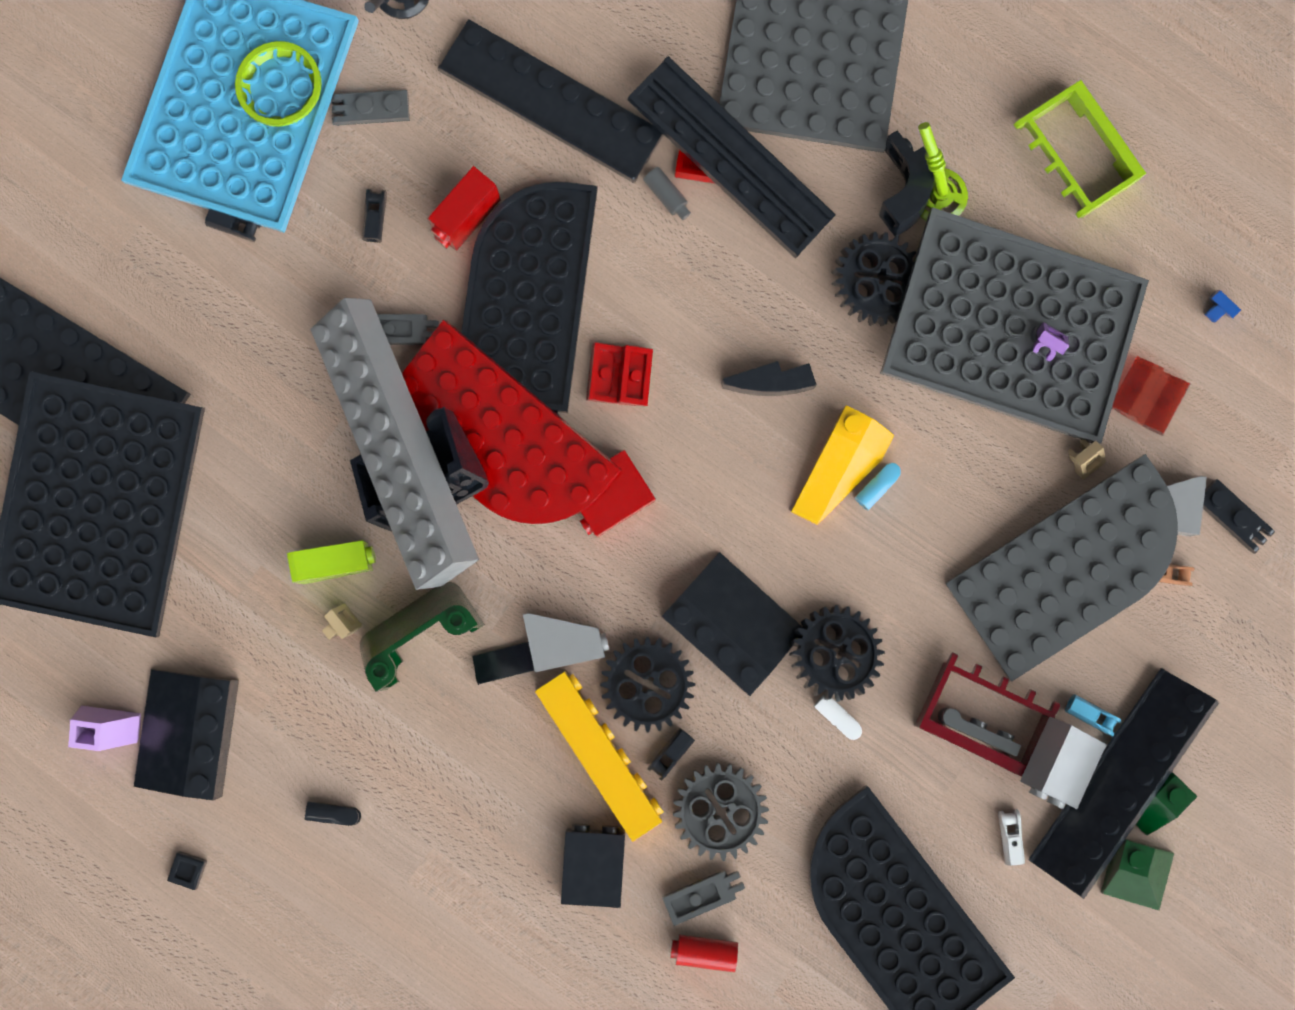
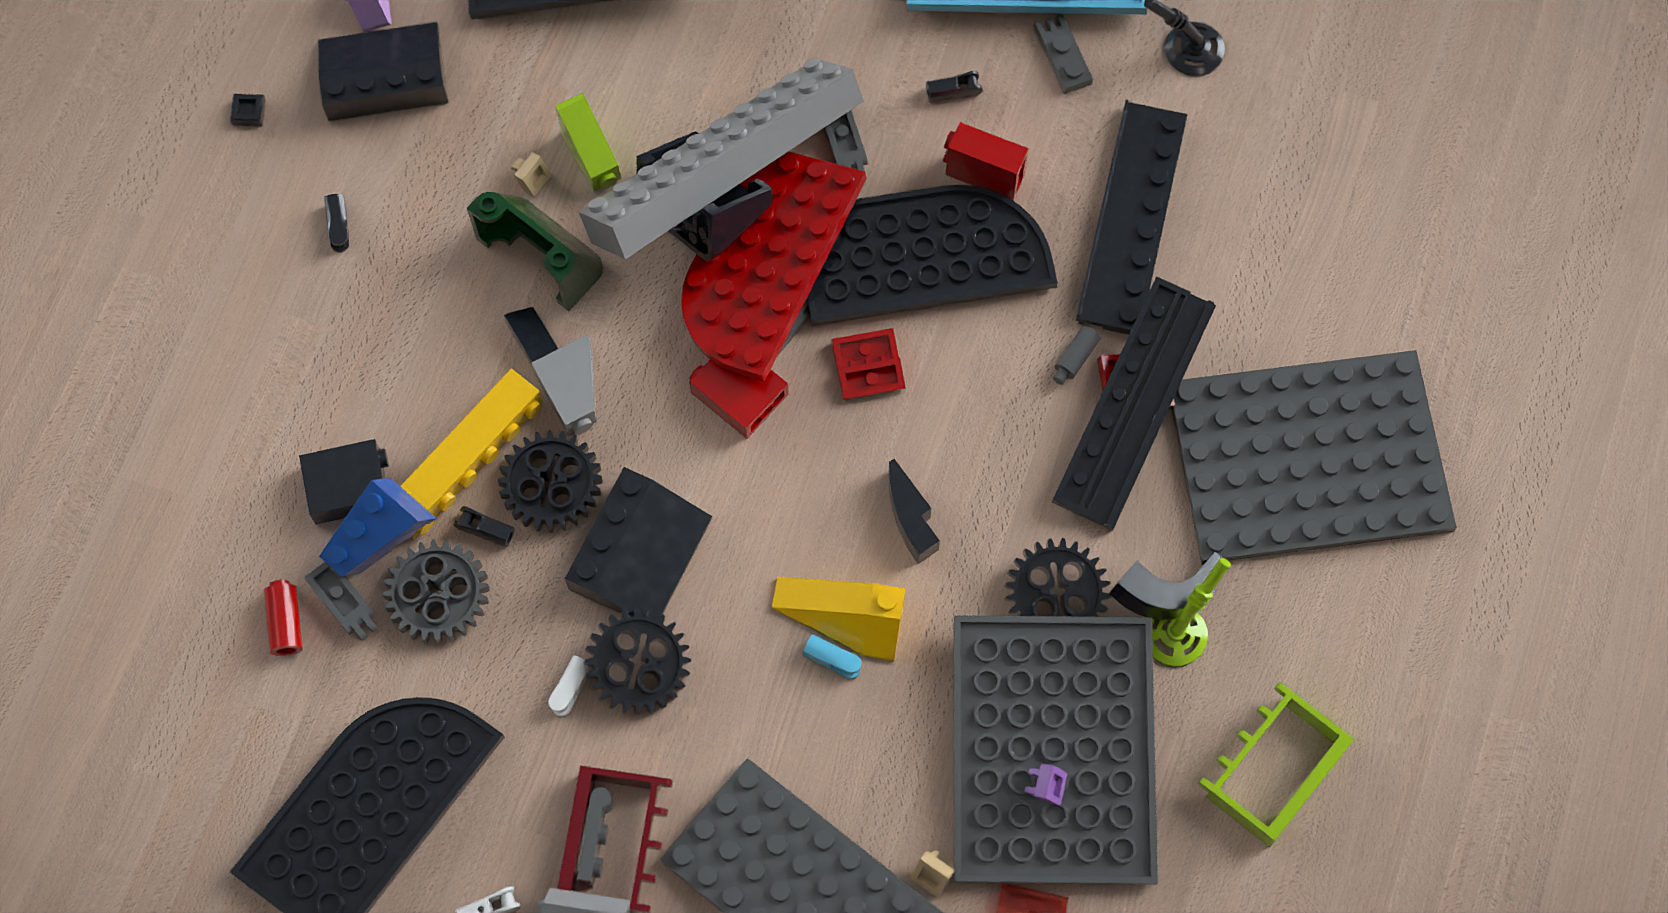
camera: 75 degrees right, 15 degrees down
(654, 849) = (374, 526): none -> blue wedge

